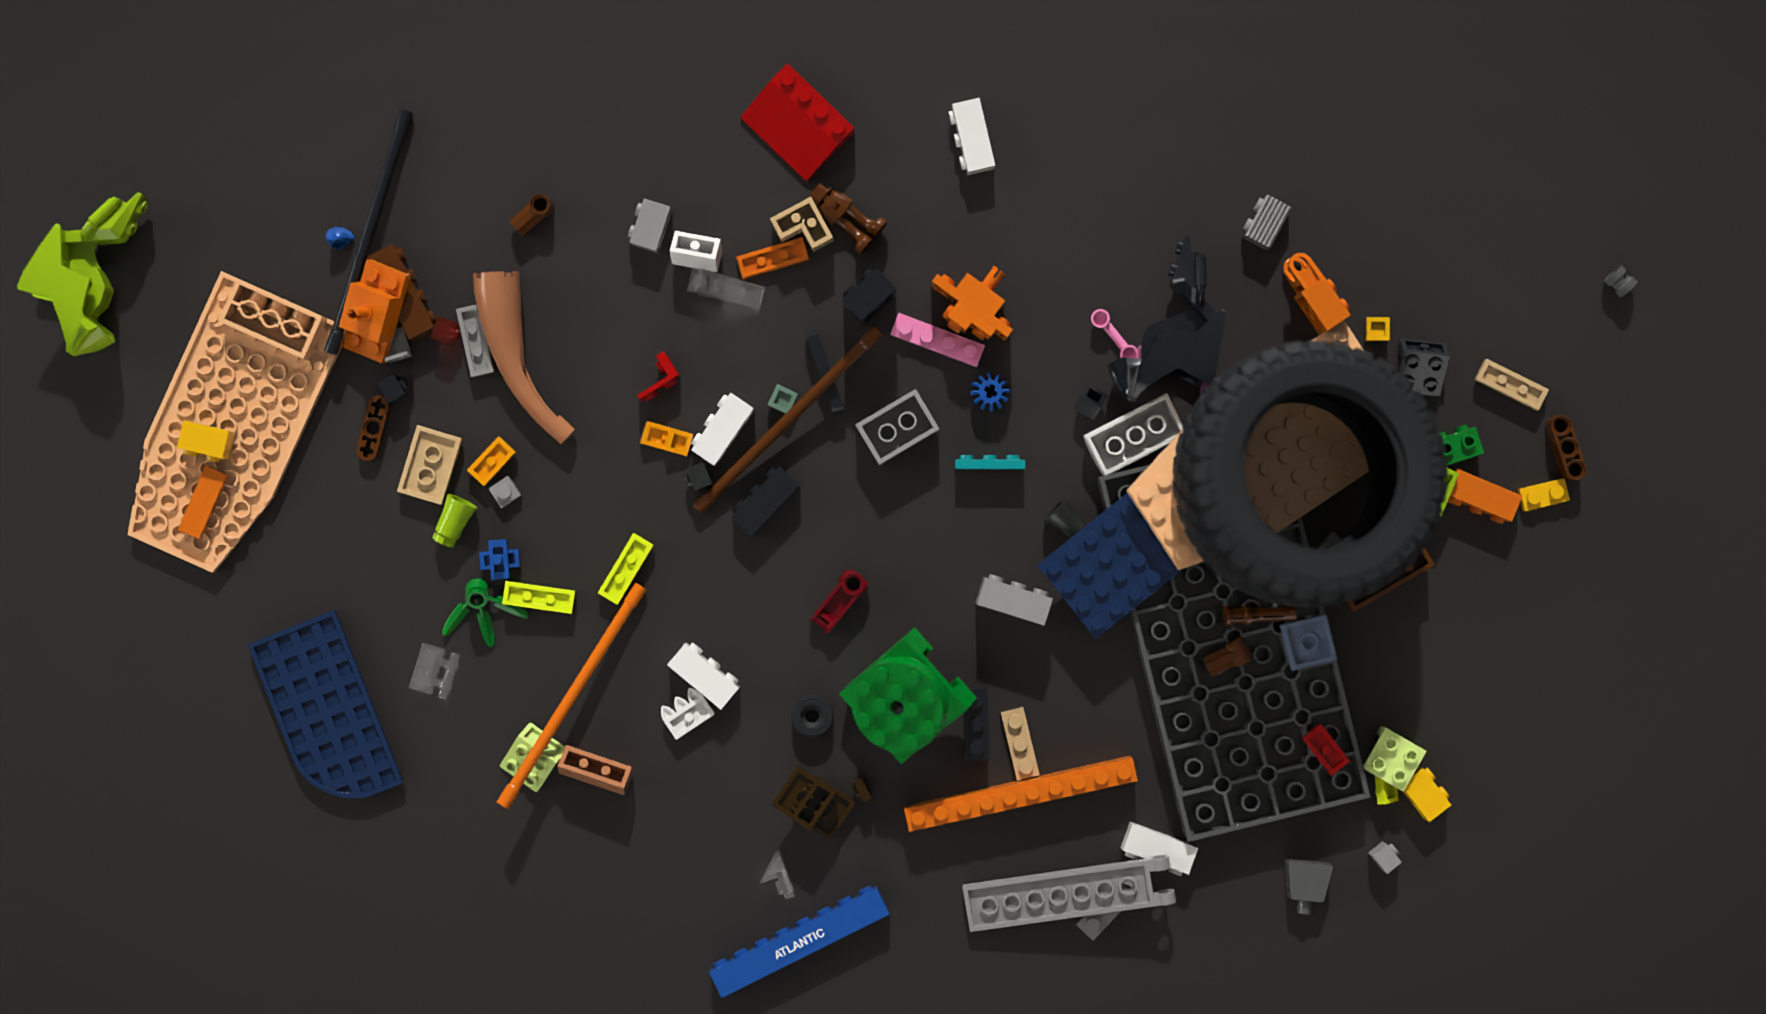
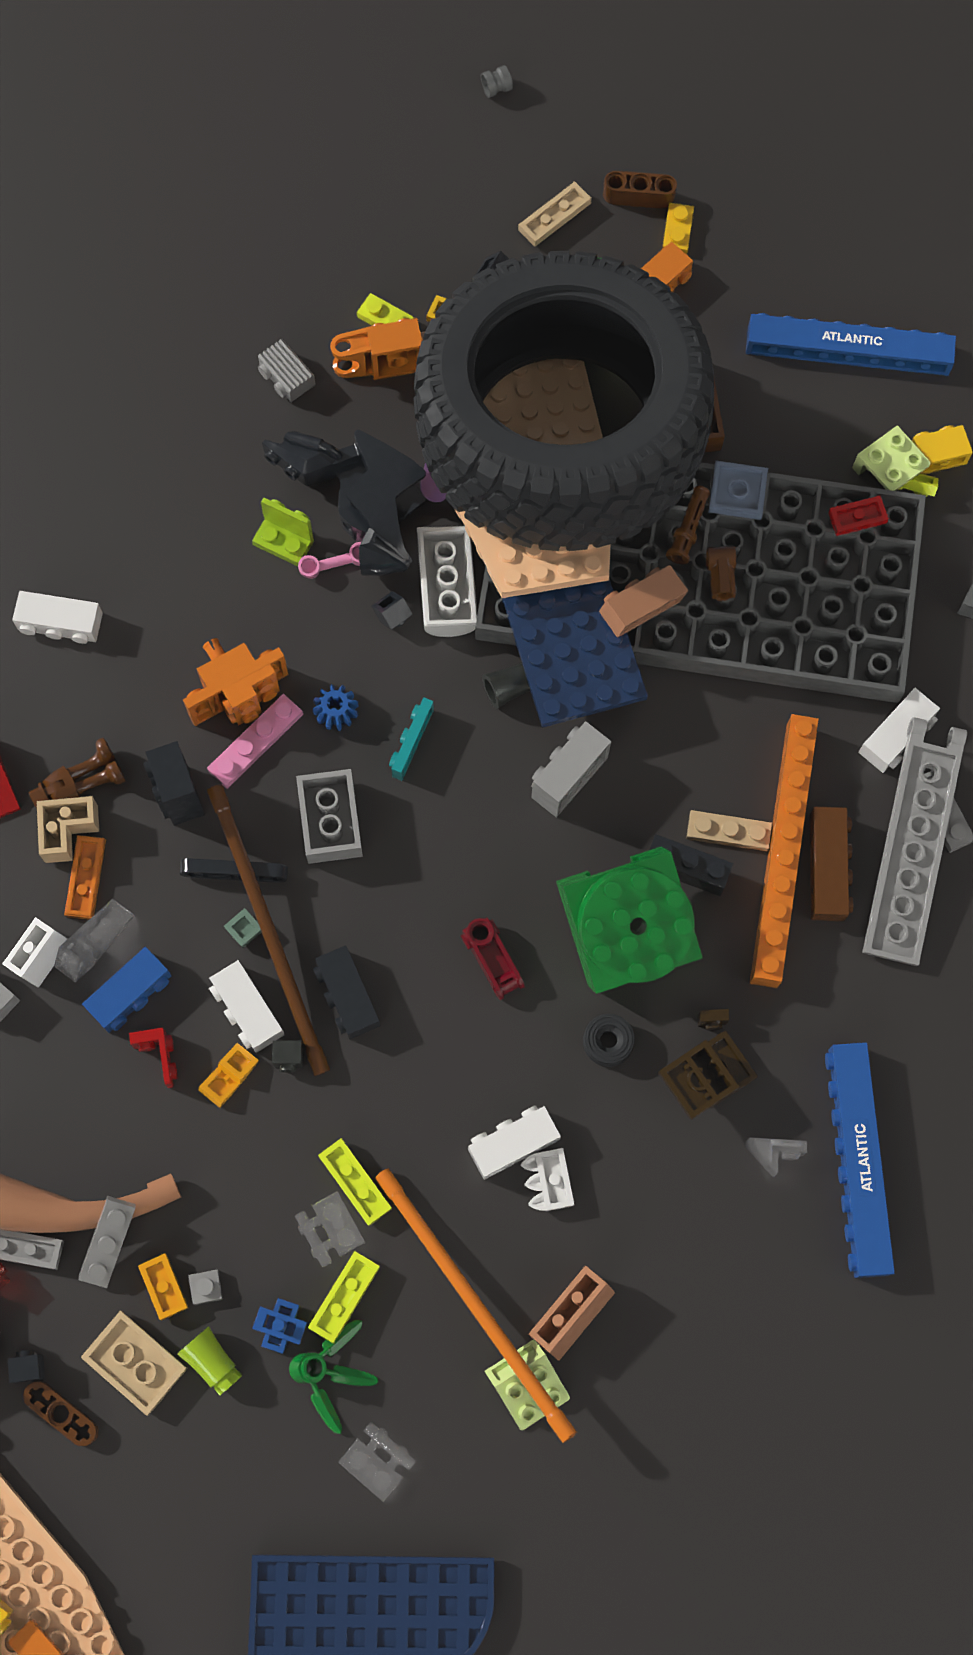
camera: 70 degrees left, 15 degrees down
(505, 406) = (107, 1241): none -> light grey plate
(589, 570) = (338, 1225): none -> clear plate
(697, 333) = (127, 990): none -> blue brick
(1023, 833) = (830, 864): none -> reddish brown brick
(1118, 285) = (284, 532): none -> lime bracket
(1173, 603) = (642, 600): none -> nougat brick
(1354, 281) = (379, 311): none -> neon yellow plate
(1492, 683) = (850, 344): none -> blue brick

